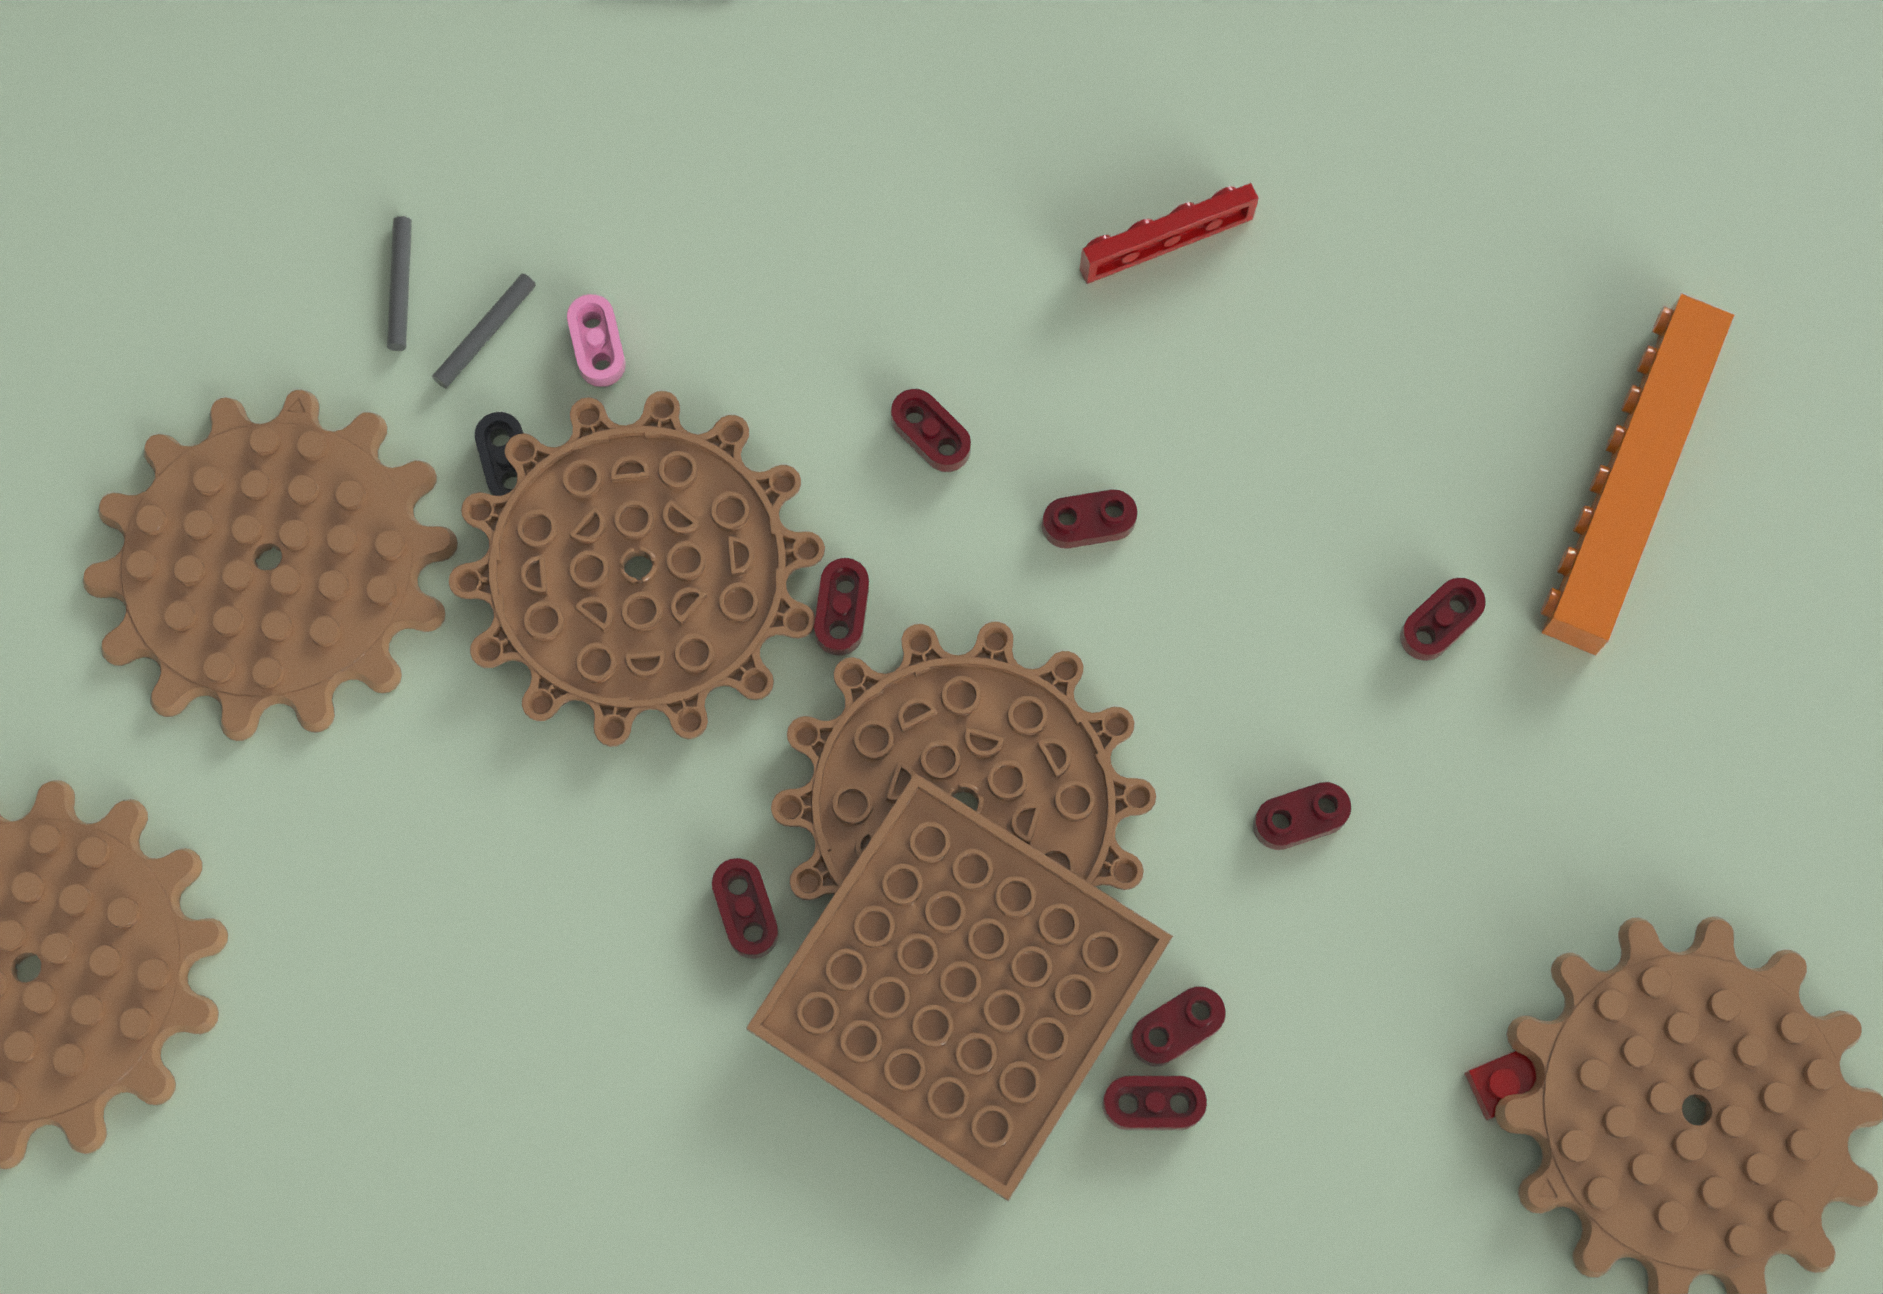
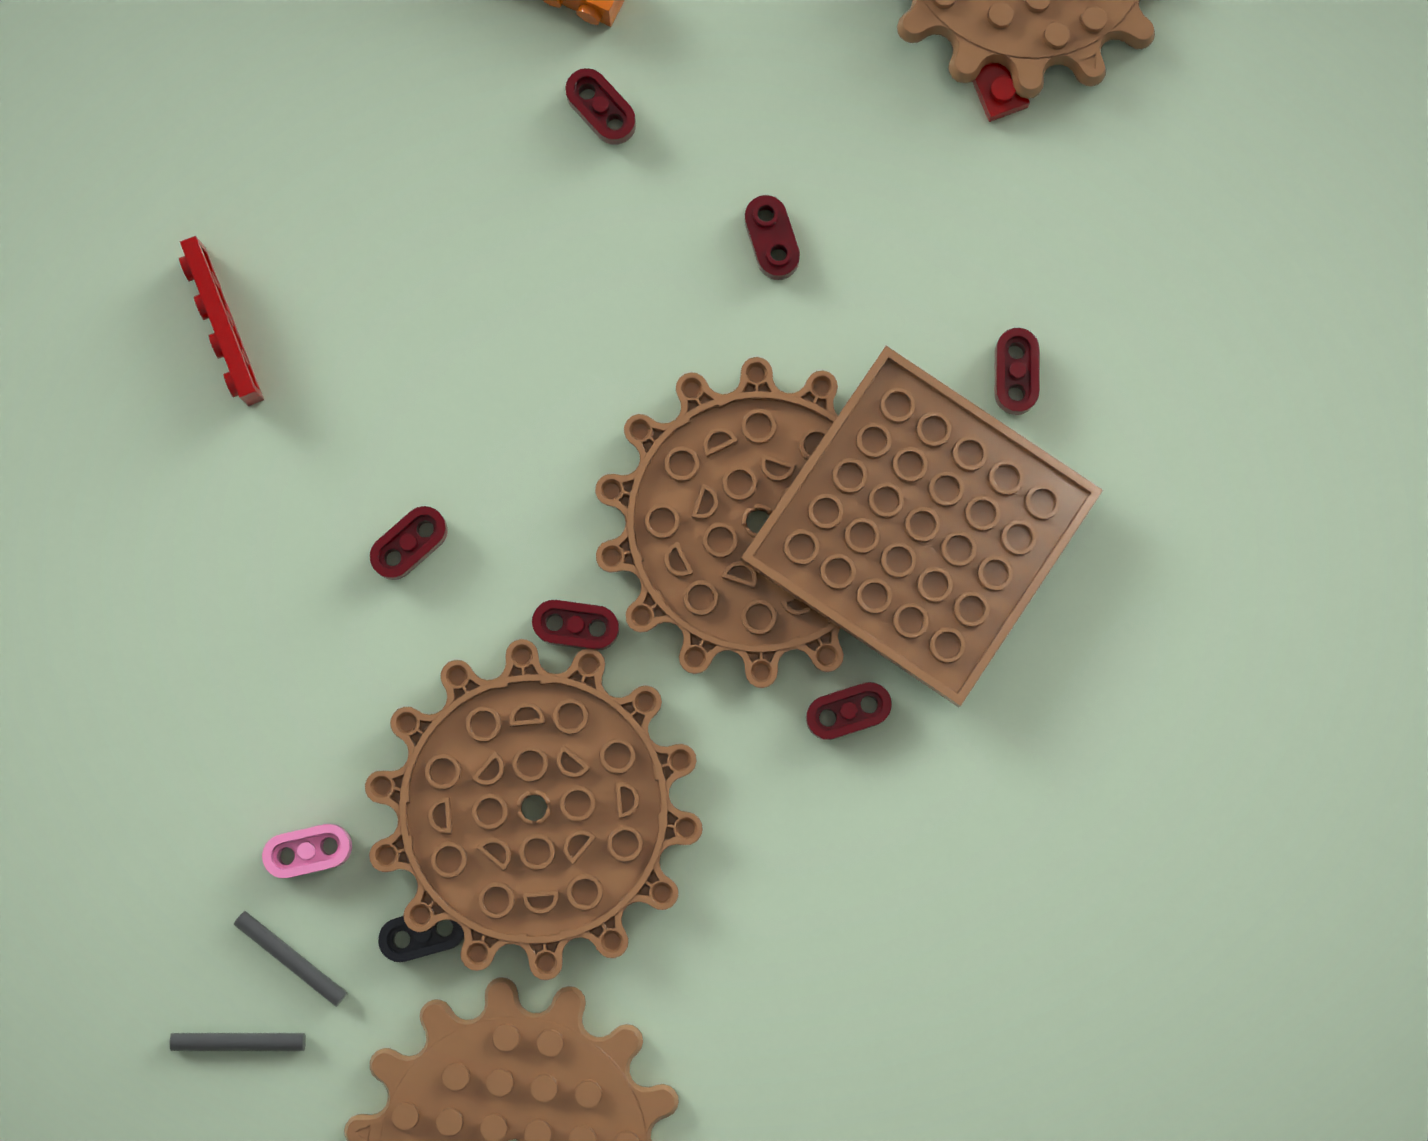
camera: 85 degrees left, 10 degrees up
(1091, 521) = (496, 404): dark red plate -> none
(1179, 1026) = (951, 348): dark red plate -> none

